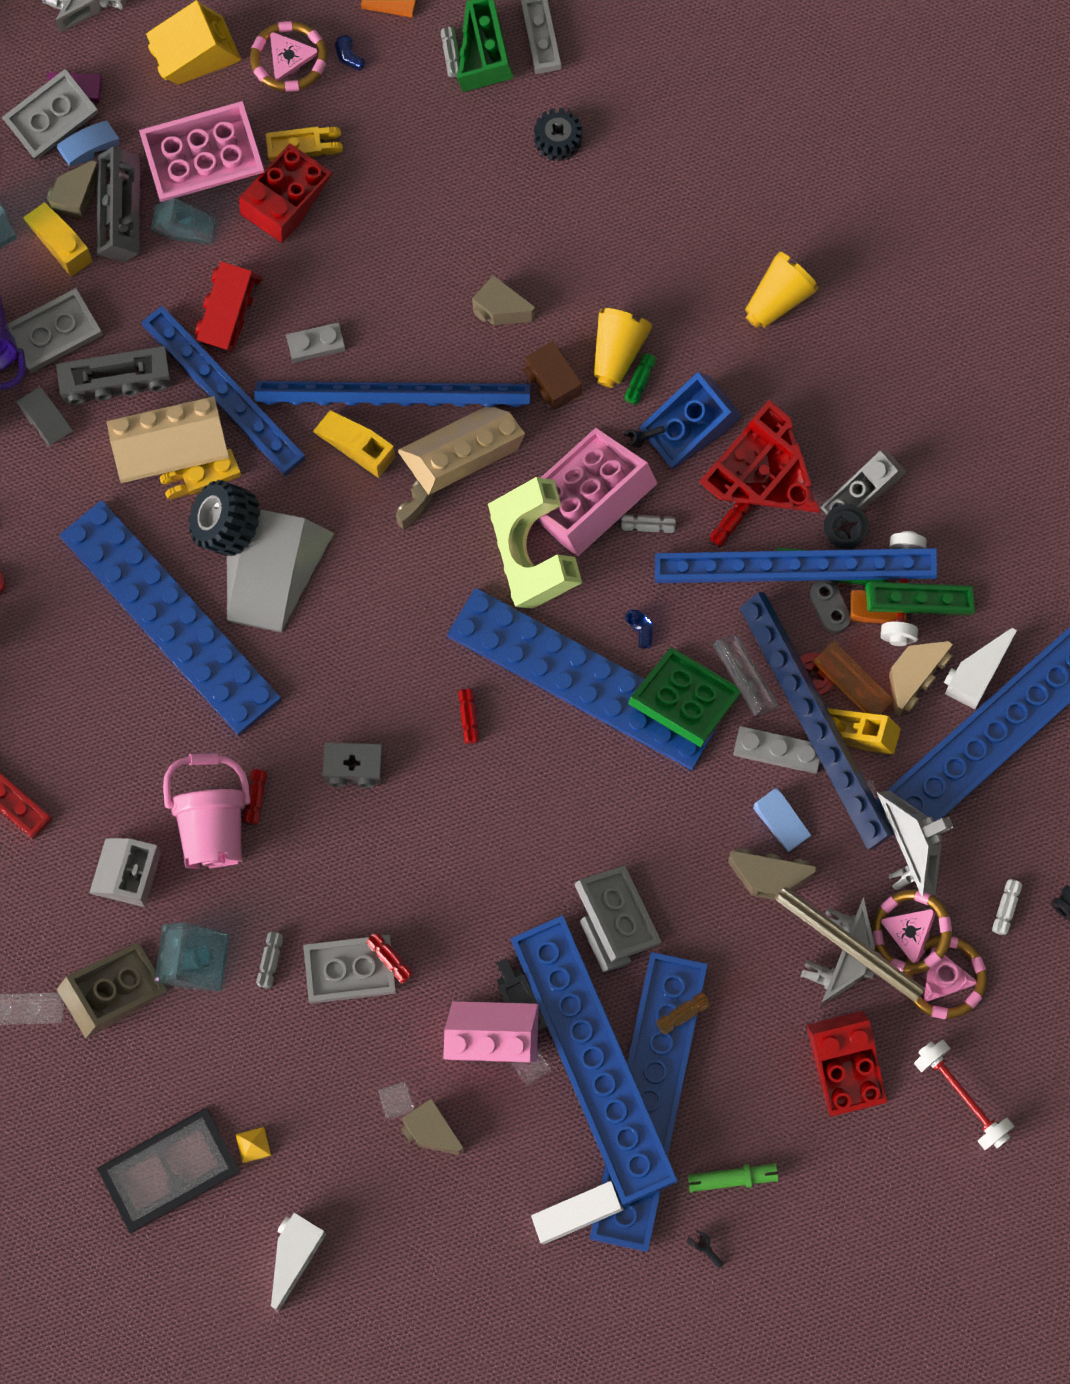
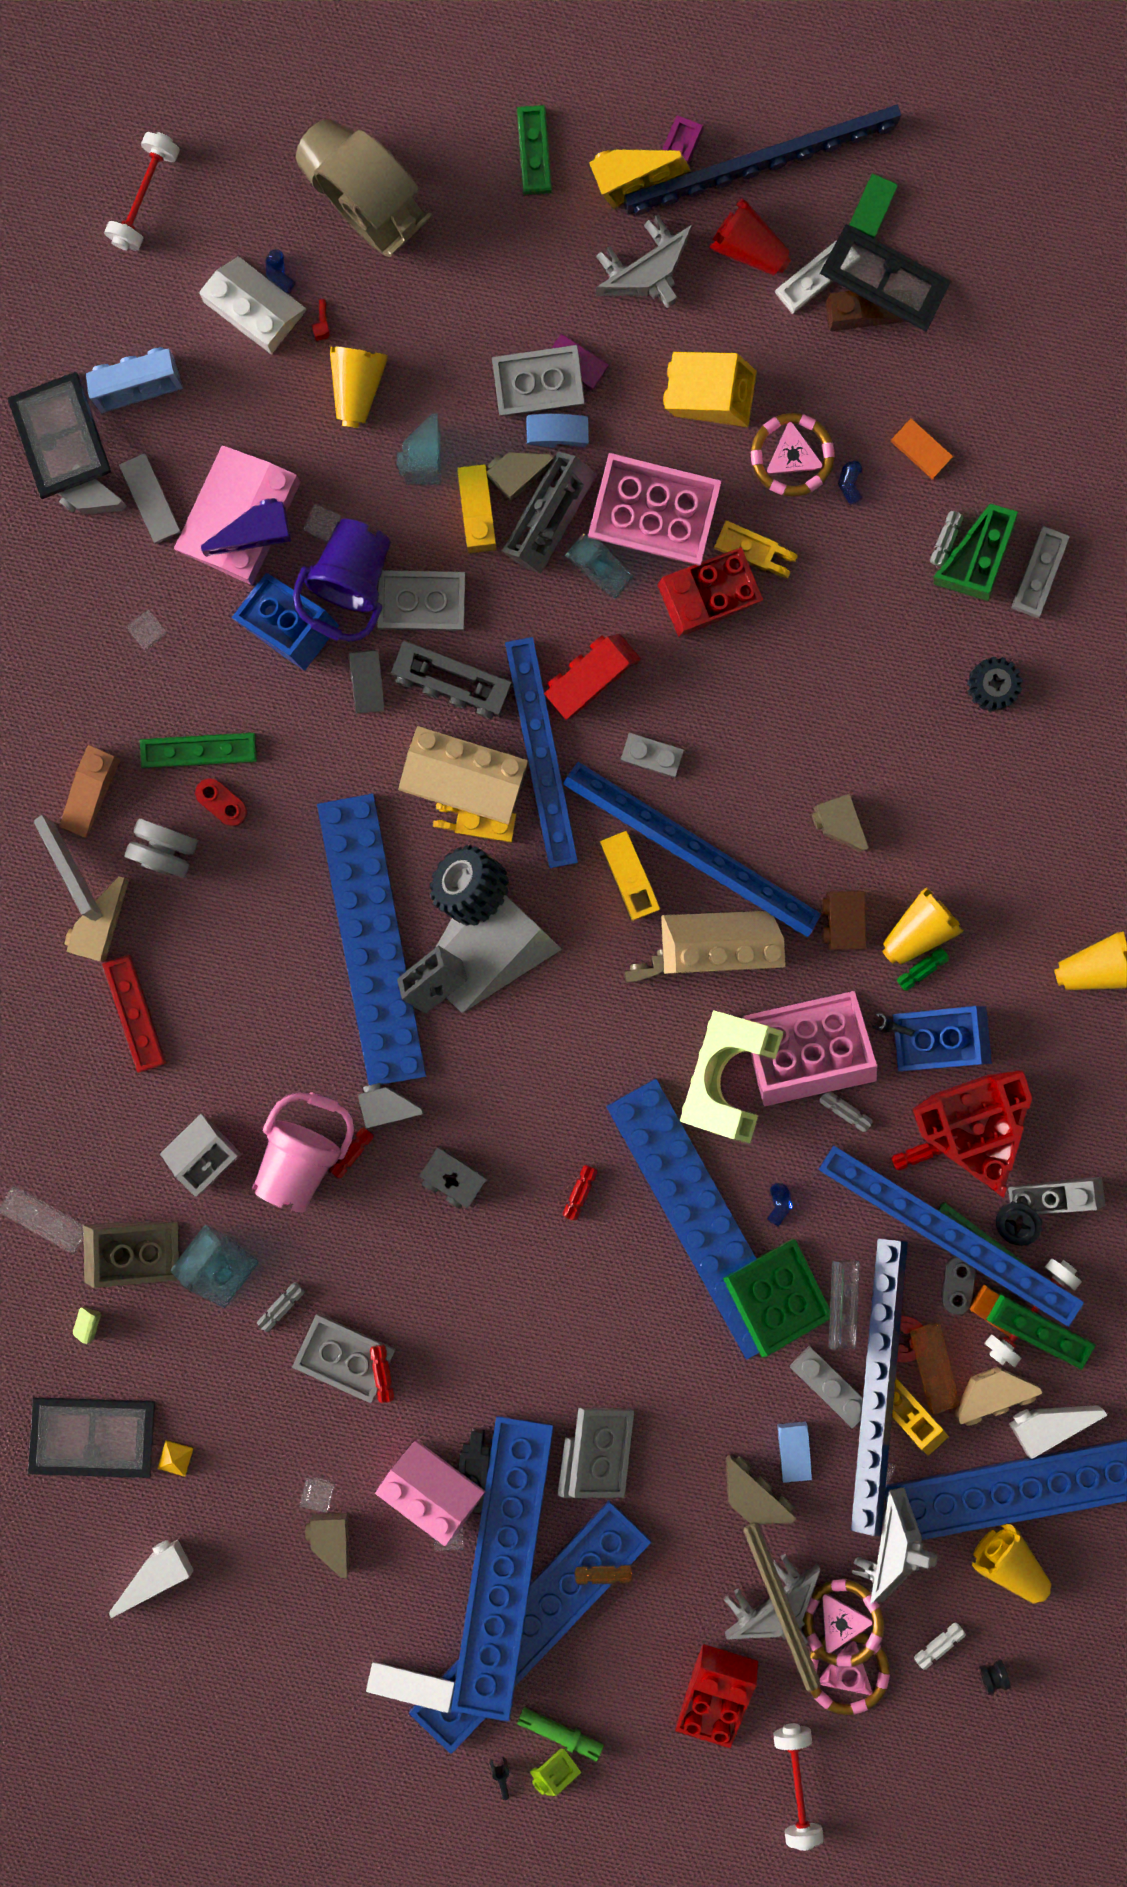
camera: 25 degrees right, 15 degrees up
(108, 1074) = (86, 1324): none -> yellowish green slope
(238, 611) = (432, 979): none -> dark grey brick
(261, 739) = (385, 1106): none -> light grey slope
(749, 1215) = (555, 1774): none -> lime bracket
(1022, 799) = (1011, 1564): none -> yellow cone

